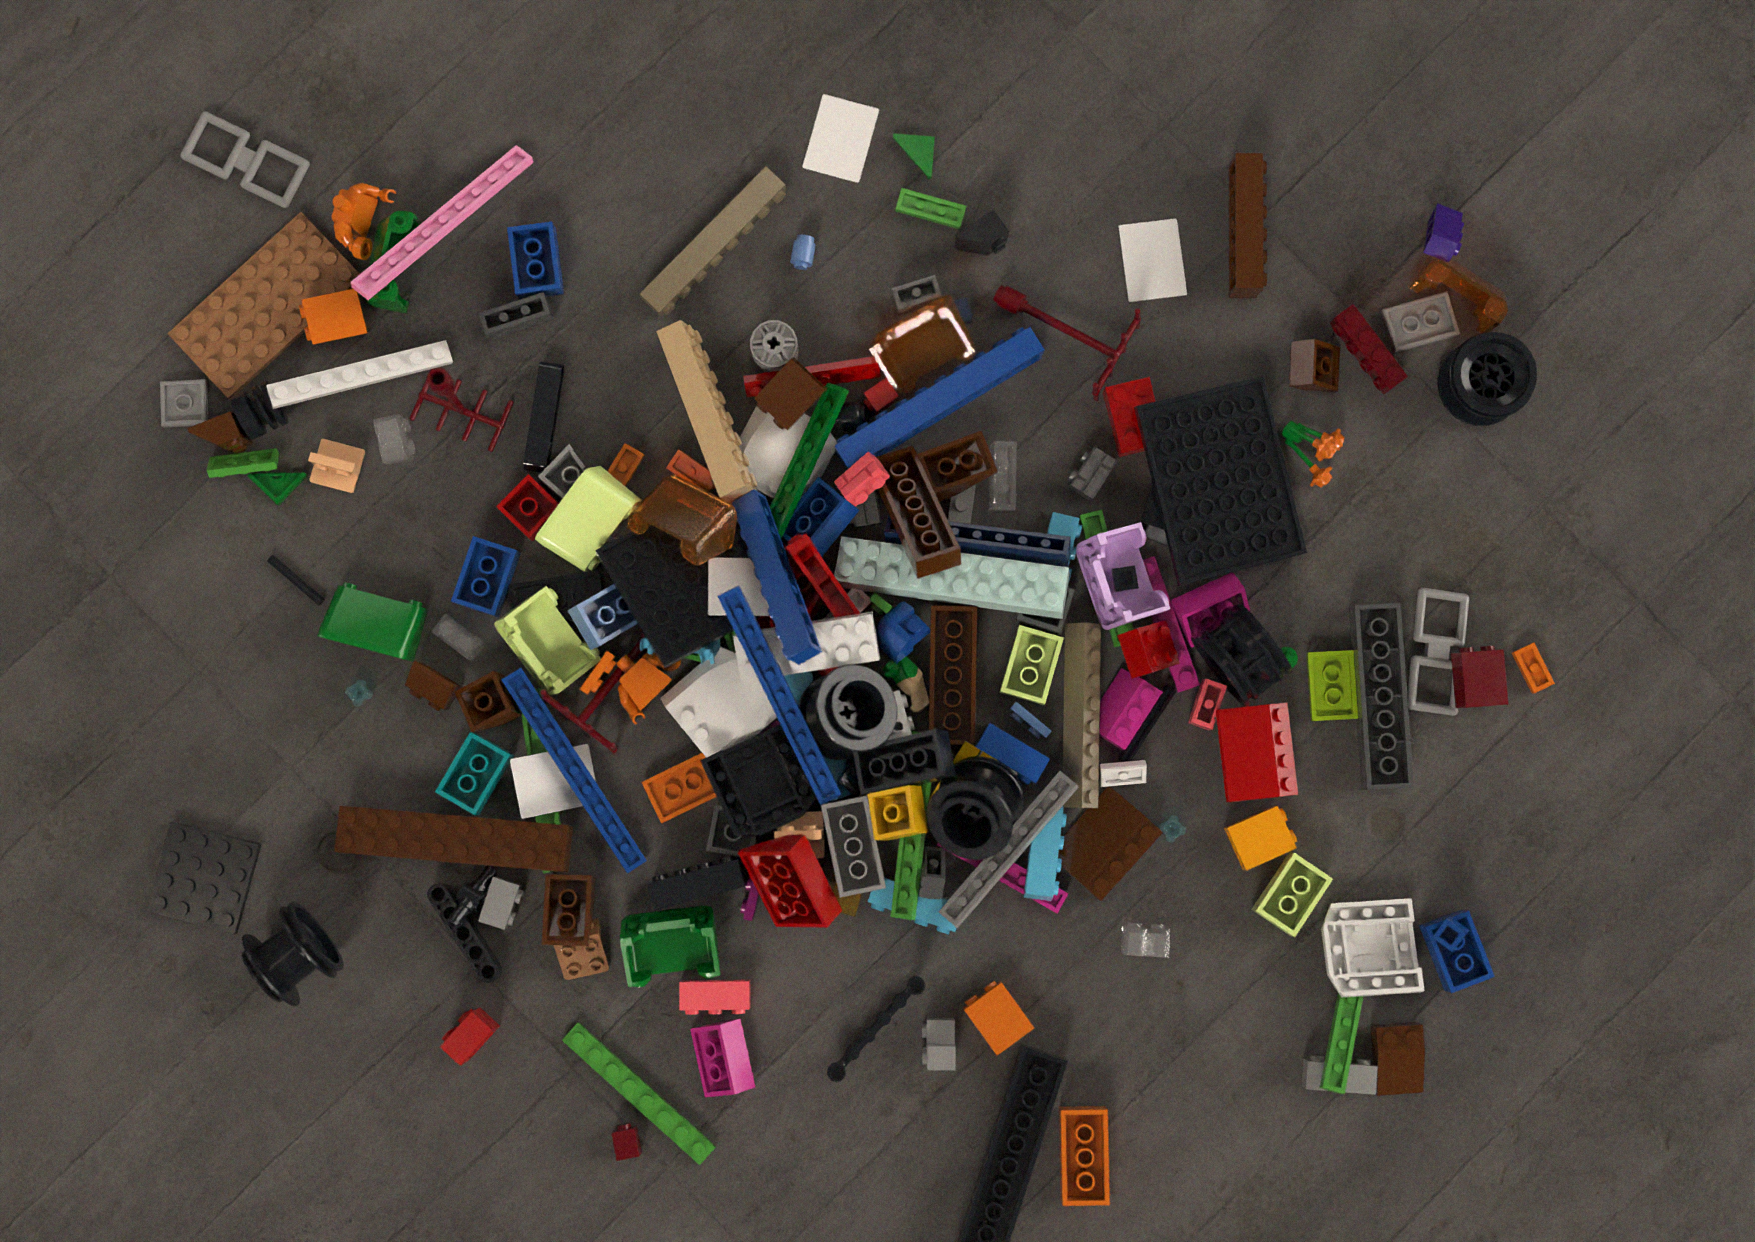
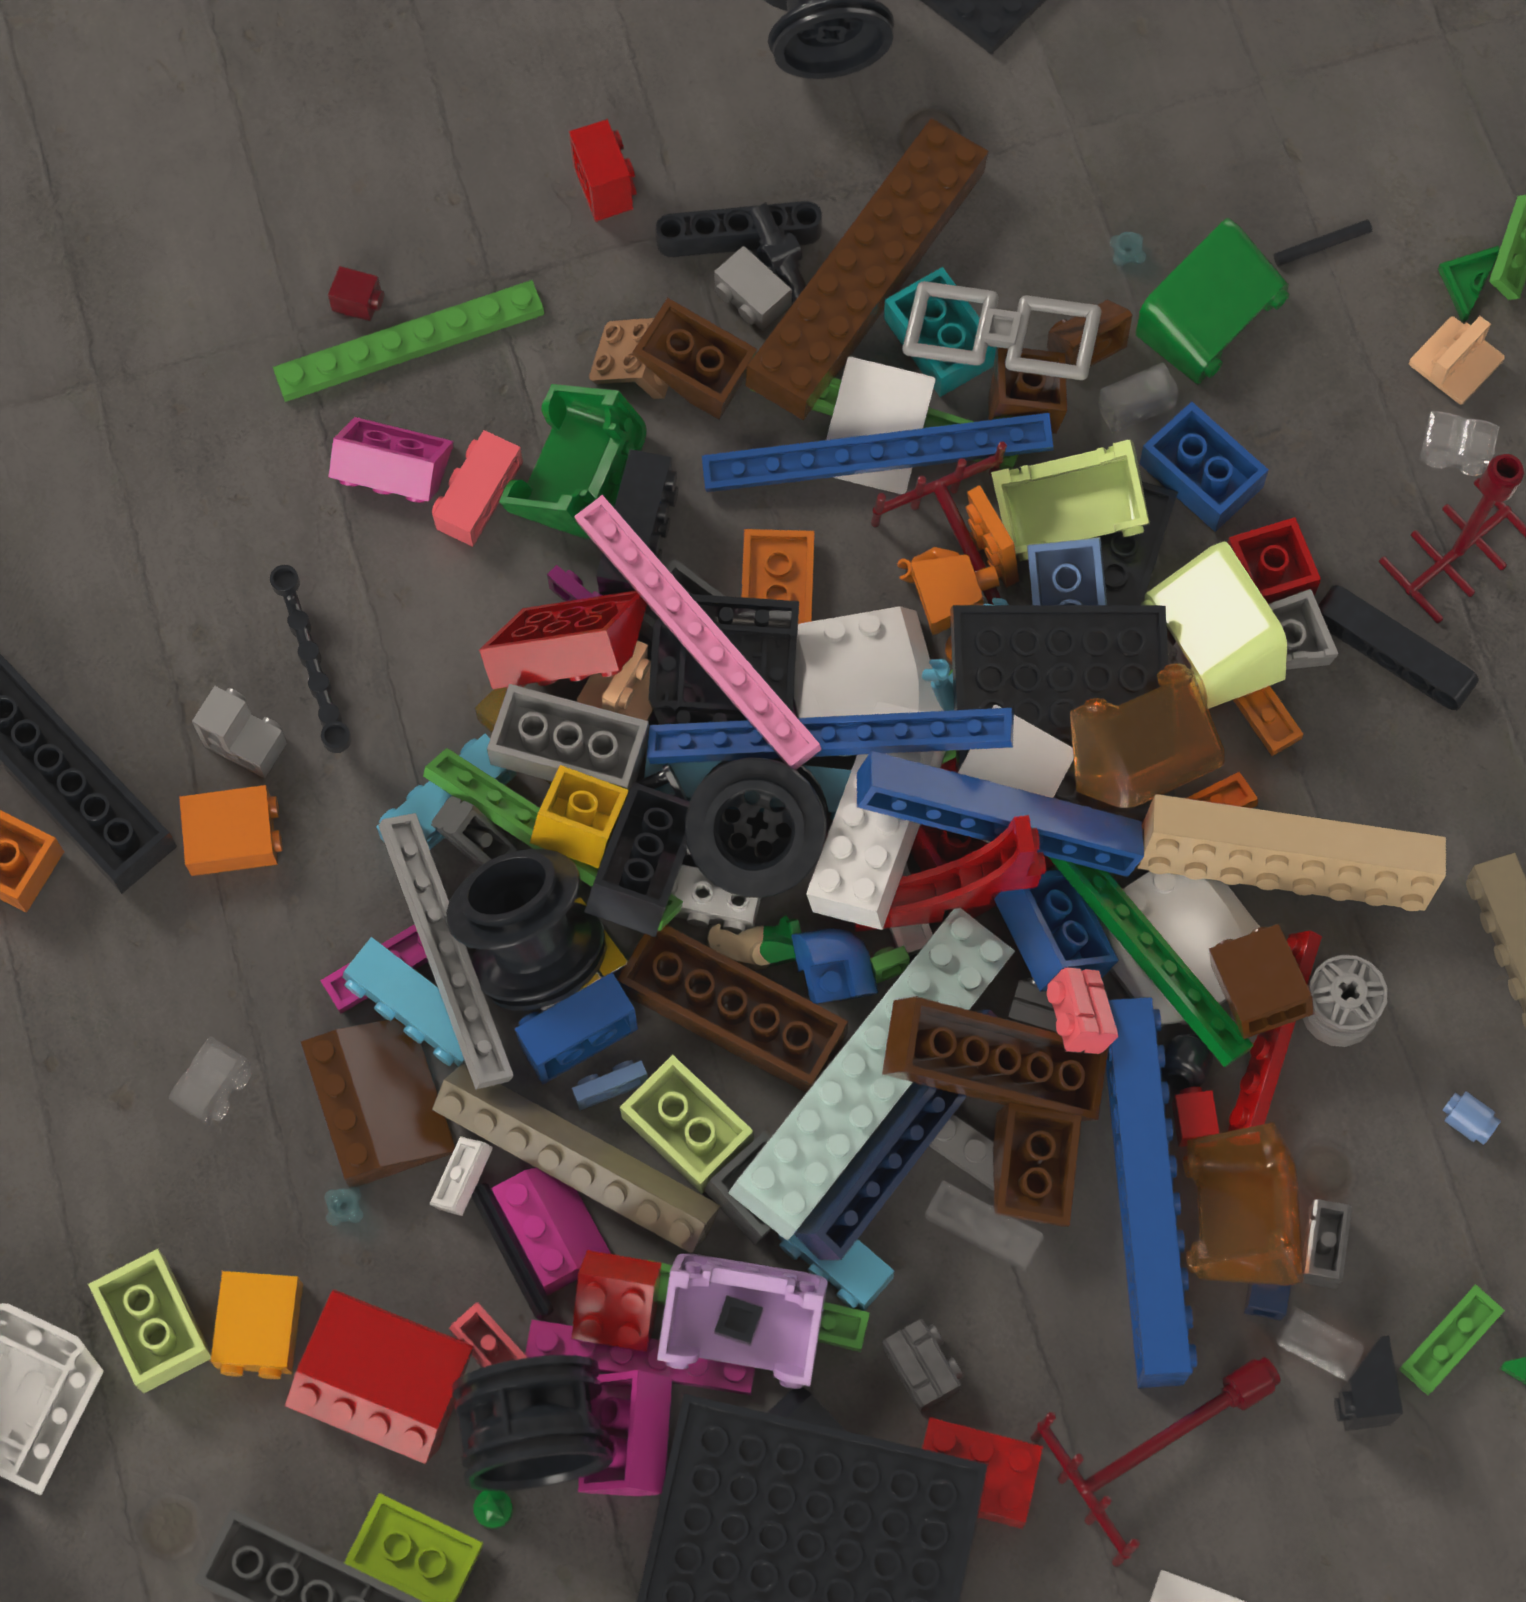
camera: 120 degrees right, 15 degrees down
(463, 732) = (1002, 330): none -> light grey bar
(755, 805) = (698, 633): none -> bright pink plate
(971, 273) = (1320, 1343): none -> clear brick

